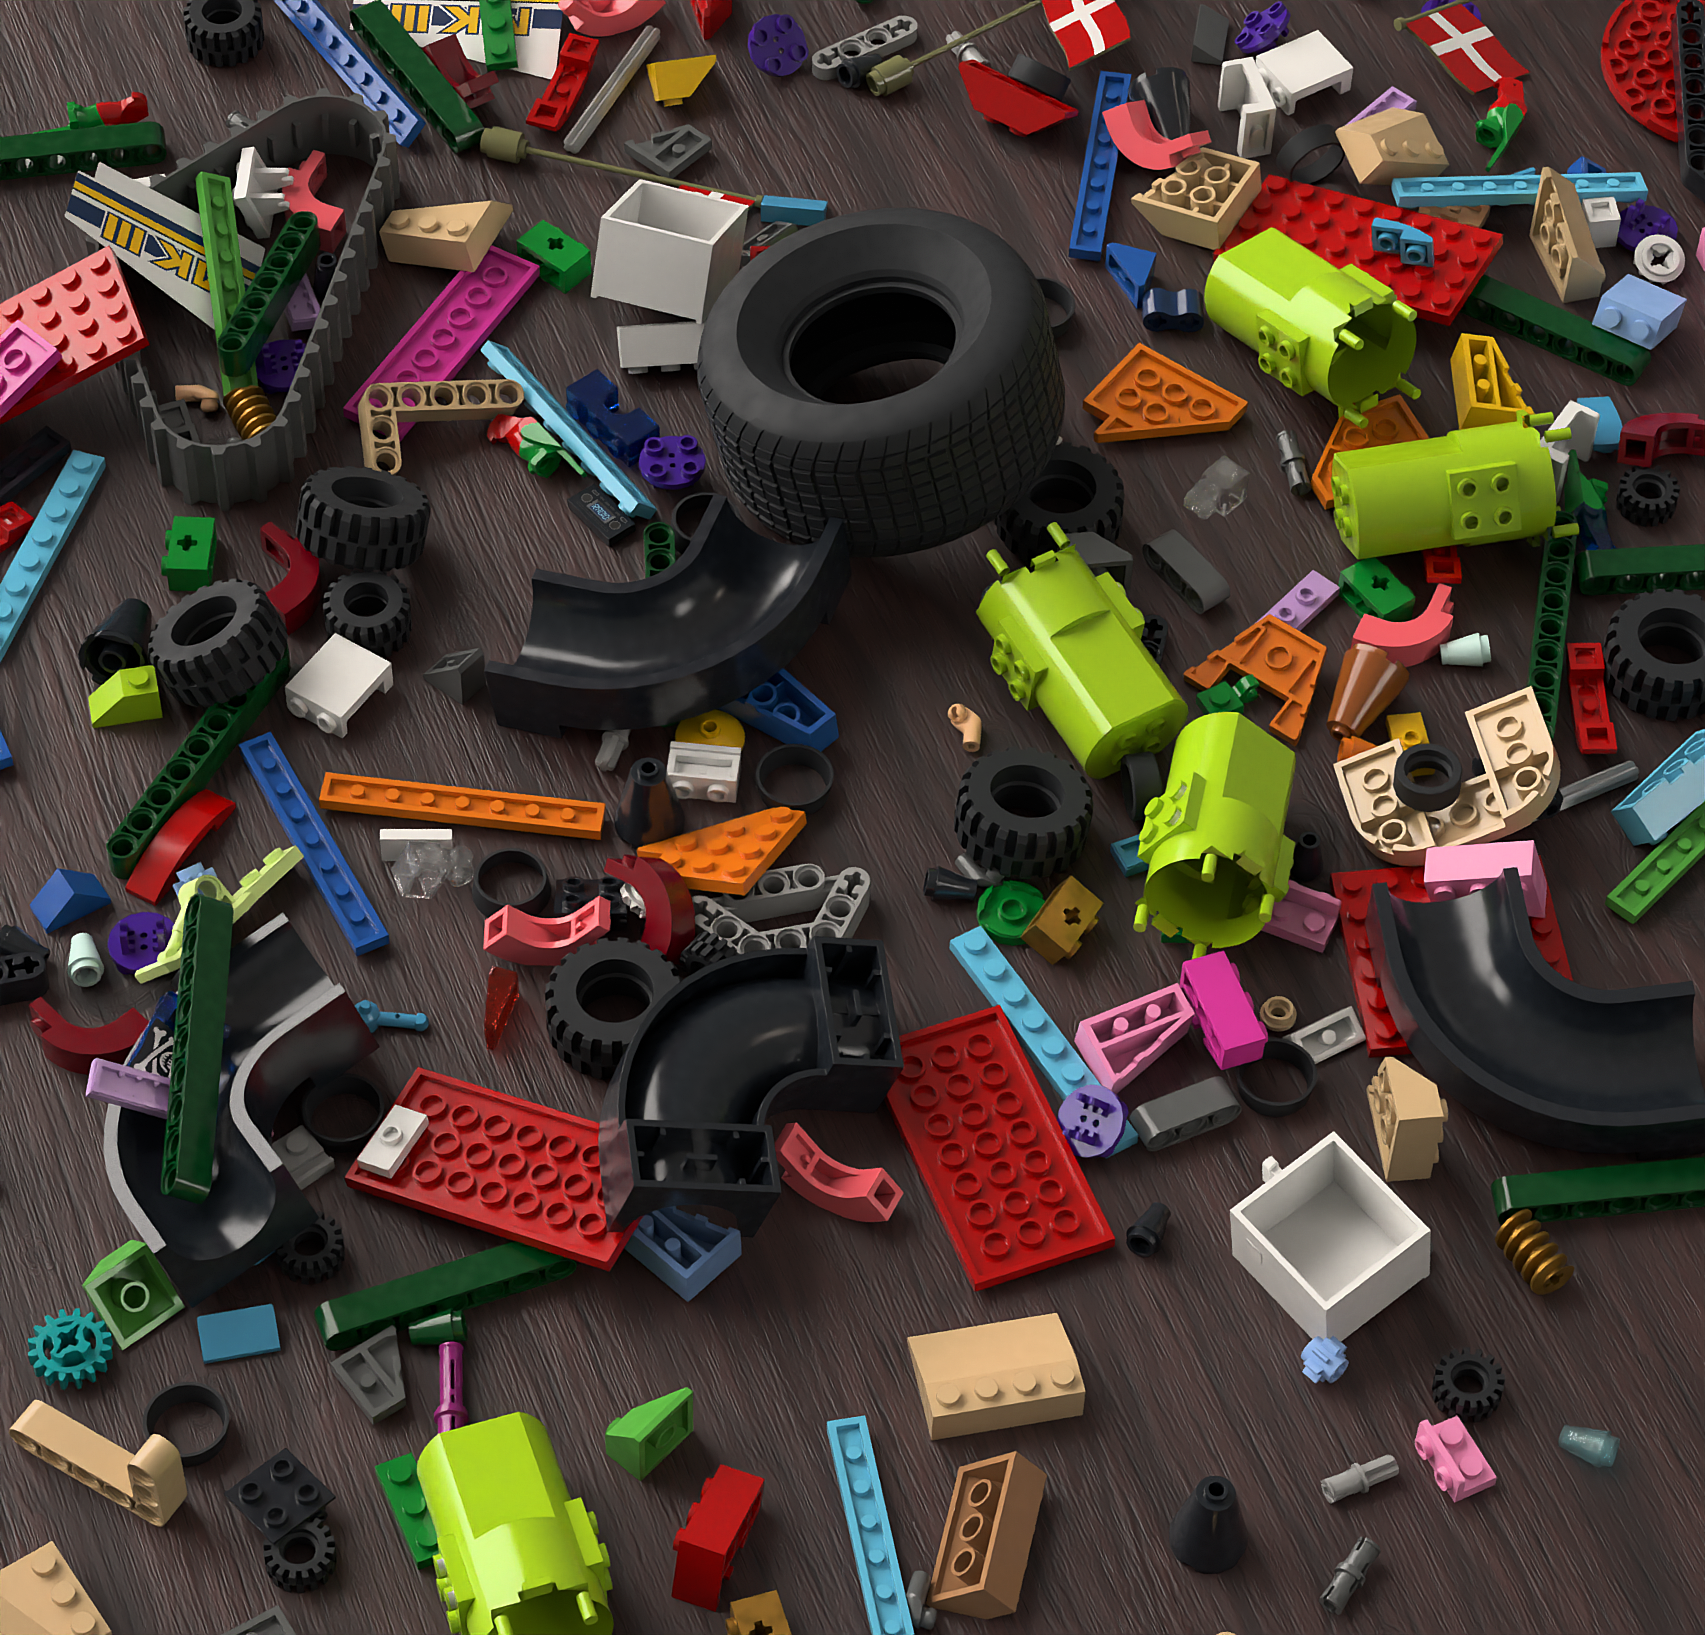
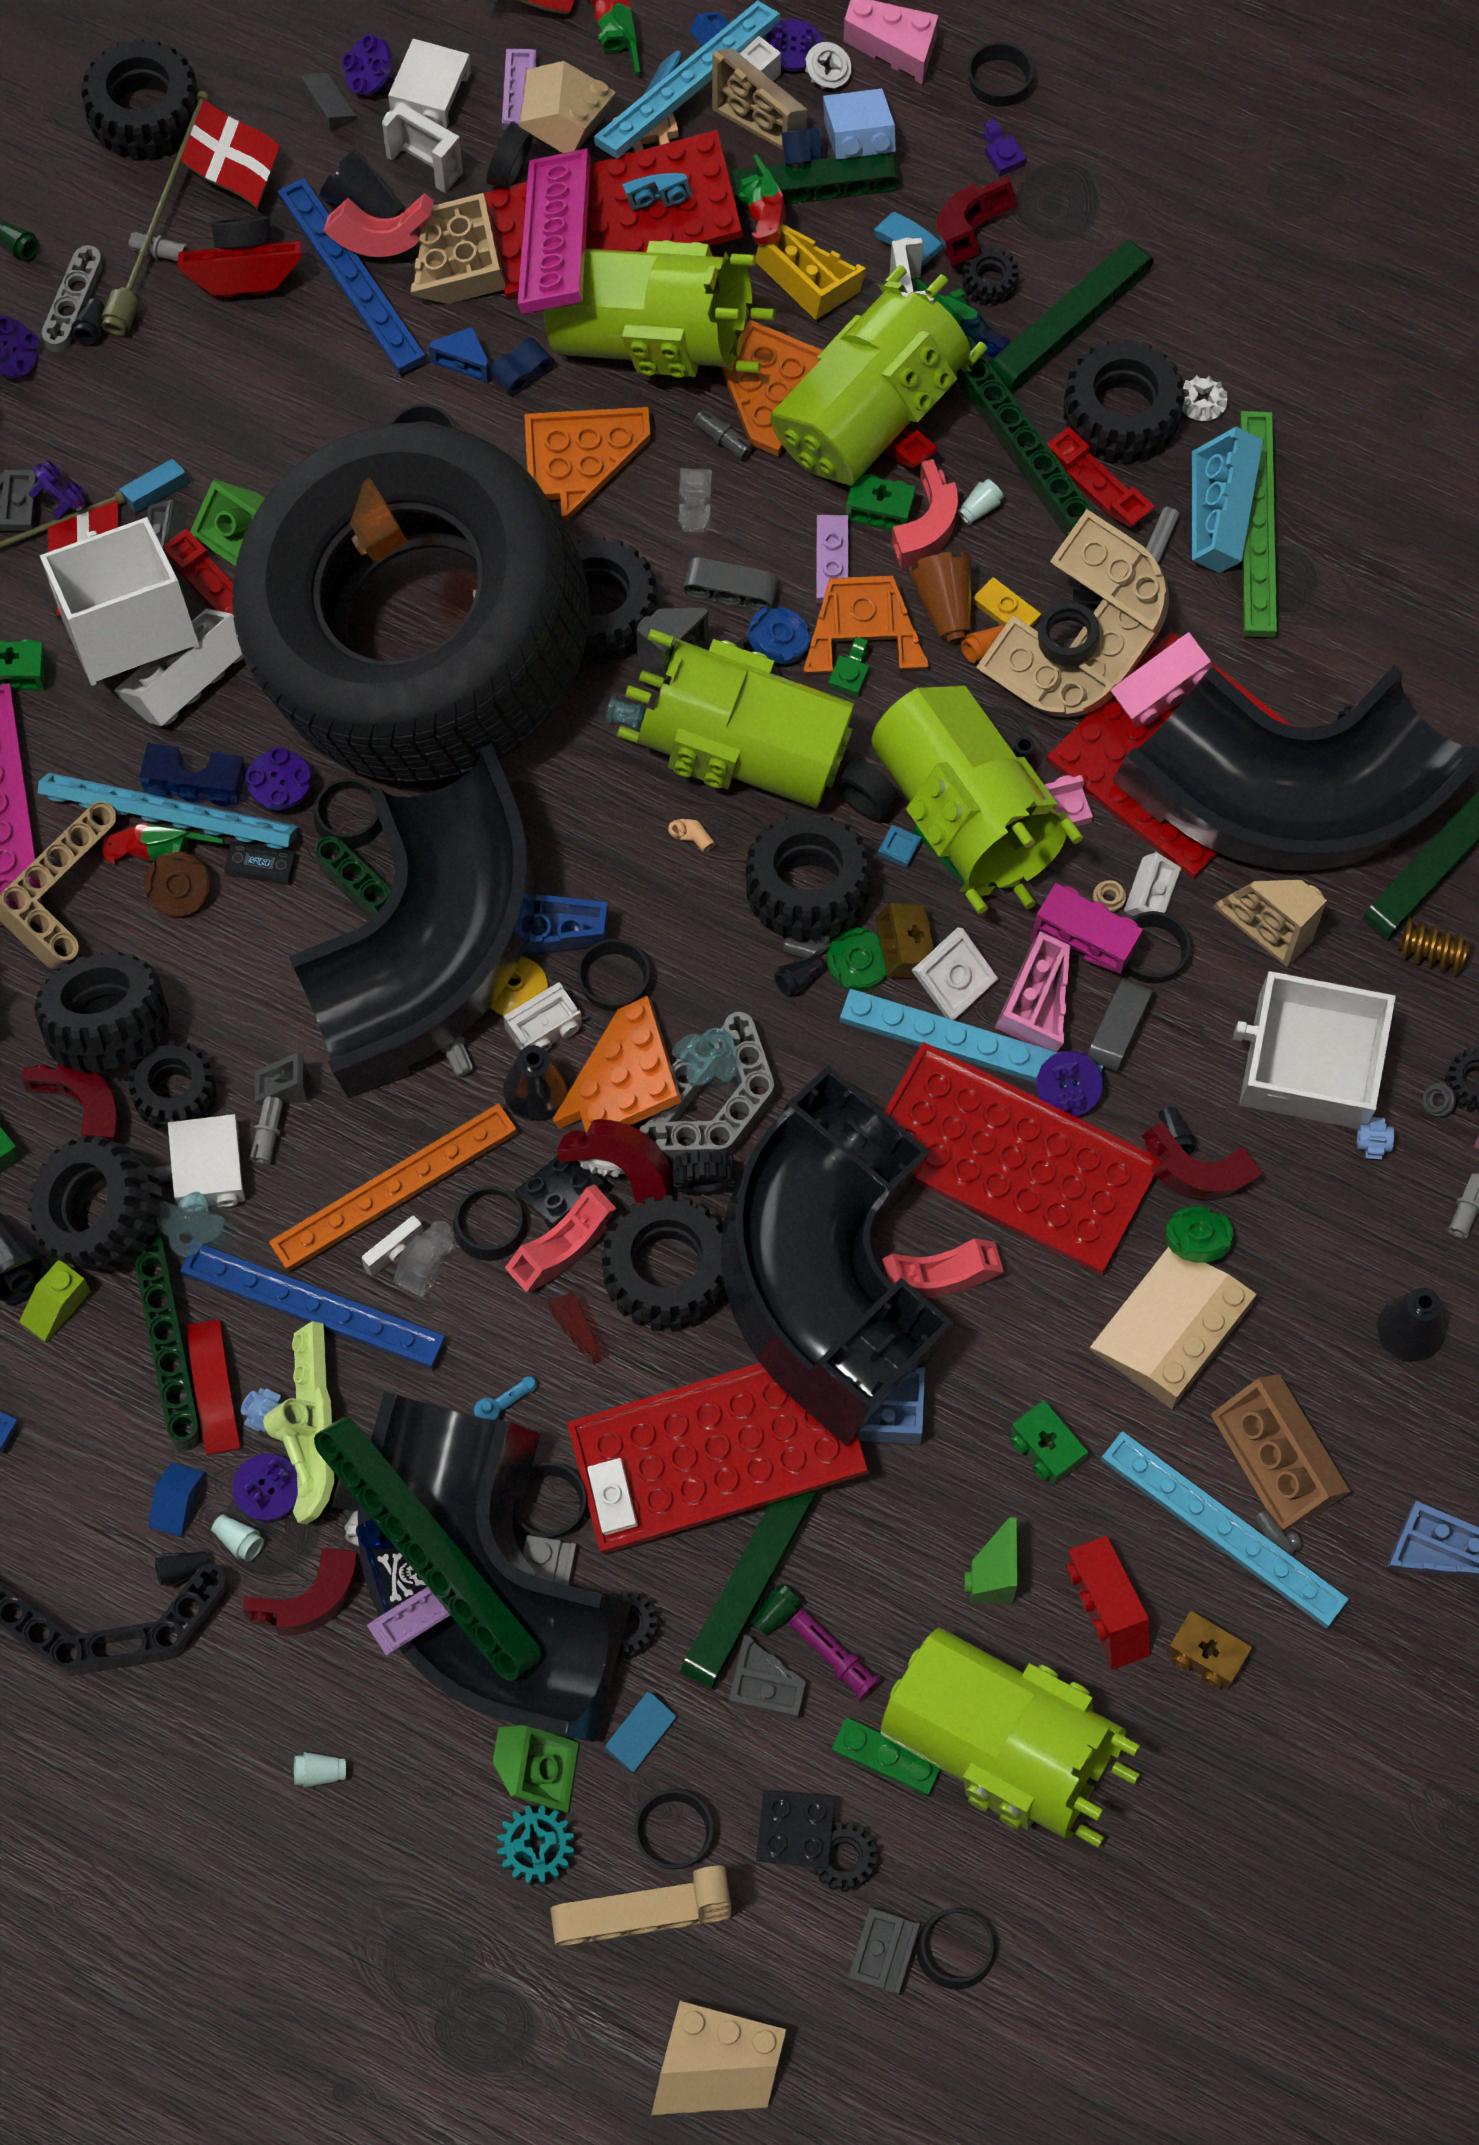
camera: 40 degrees left, 15 degrees up
(279, 709) = (192, 1219): none -> clear light blue plate
(408, 698) = (266, 1131): none -> light grey axle
(520, 481) = (177, 883): none -> reddish brown tile
(714, 156) = (68, 493): none -> dark purple plate
(791, 1358) = (1044, 1425): none -> green brick
(799, 880) = (704, 1060): none -> clear light blue plate
(881, 272) = (375, 524): none -> clear orange slope
(1077, 973) = (955, 974): none -> white tile
(1088, 1318) = (1199, 1234): none -> green tile
(1133, 1278) = (1196, 1177): none -> dark red arch
(1188, 632) = (779, 634): none -> blue tile
(1278, 211) = (554, 231): none -> dark pink plate
(1415, 1374) = (1430, 1099): none -> dark grey plate
(1491, 313) = (764, 204): none -> animal
(1572, 295) = (802, 145): none -> dark blue axle

